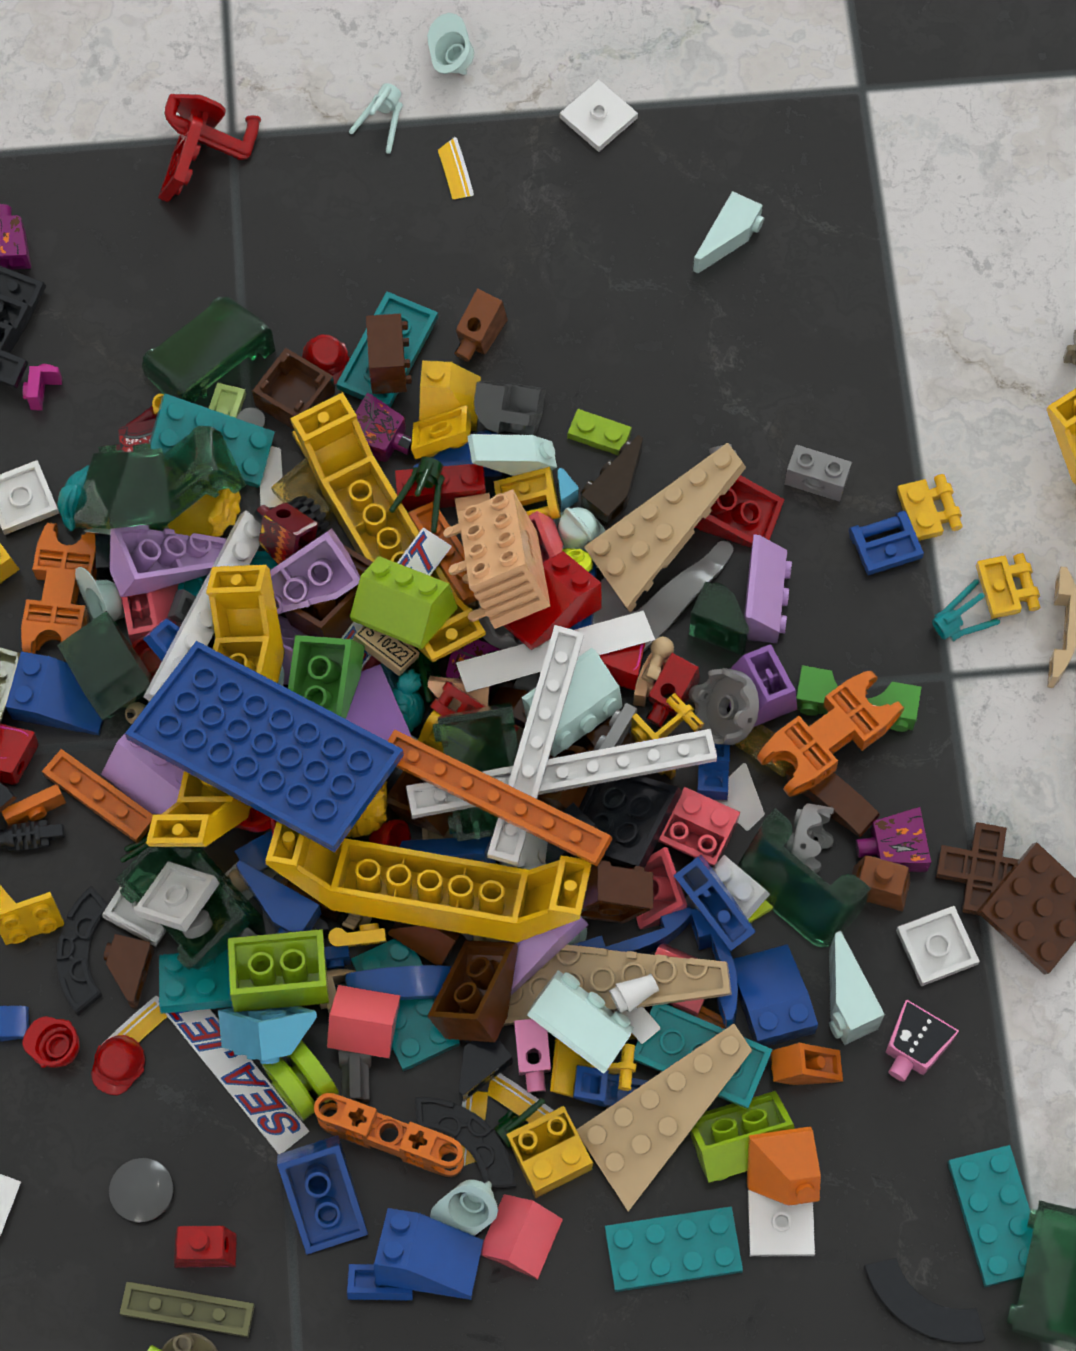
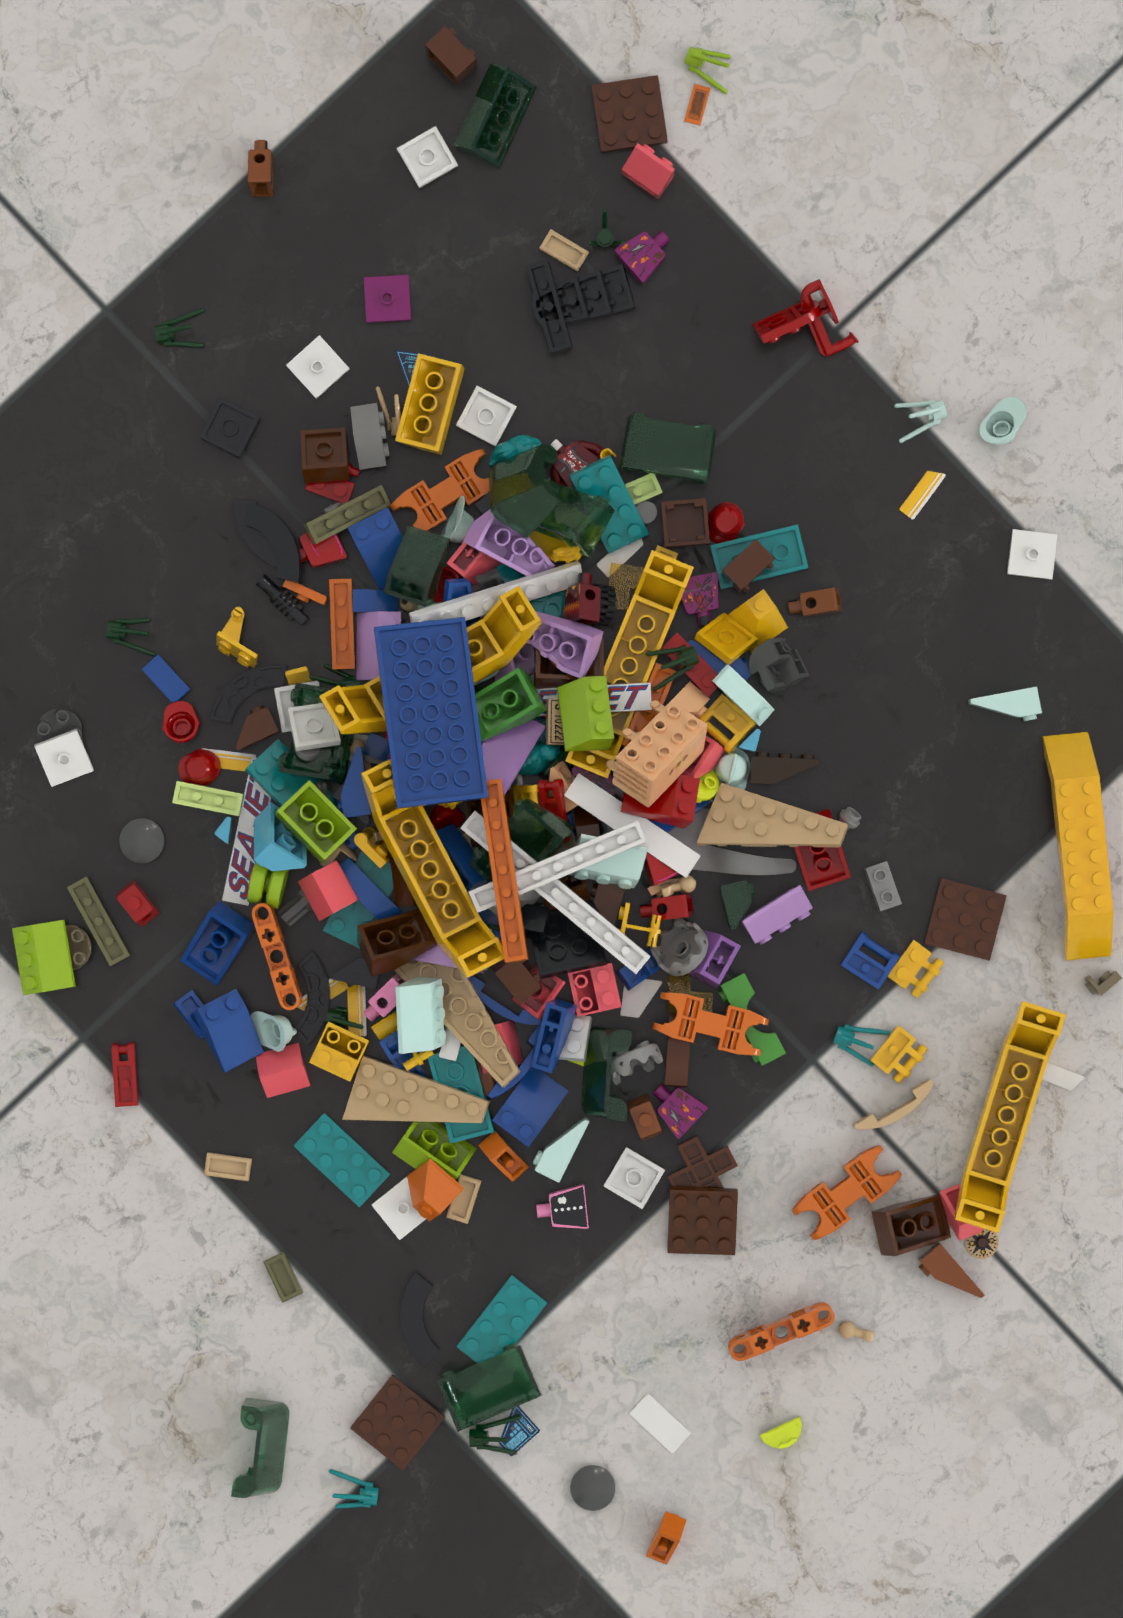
camera: 50 degrees right, 20 degrees up
(37, 379) = (561, 362): dark pink bracket -> none
(98, 747) = (373, 601): none -> blue slope
(106, 884) = (298, 675): none -> yellow slope
(157, 1080) = (207, 798): none -> yellowish green plate
(207, 1089) = (225, 829): none -> medium azure slope
(598, 432) = (808, 730): lime plate -> none
(620, 726) = (619, 897): light grey plate -> none
(633, 992) = (460, 1031): white cone -> none
(831, 1156) = (462, 1205): none -> tan tile
(914, 426) = (965, 919): none -> reddish brown plate
(933, 259) = (1080, 845): none -> yellow slope

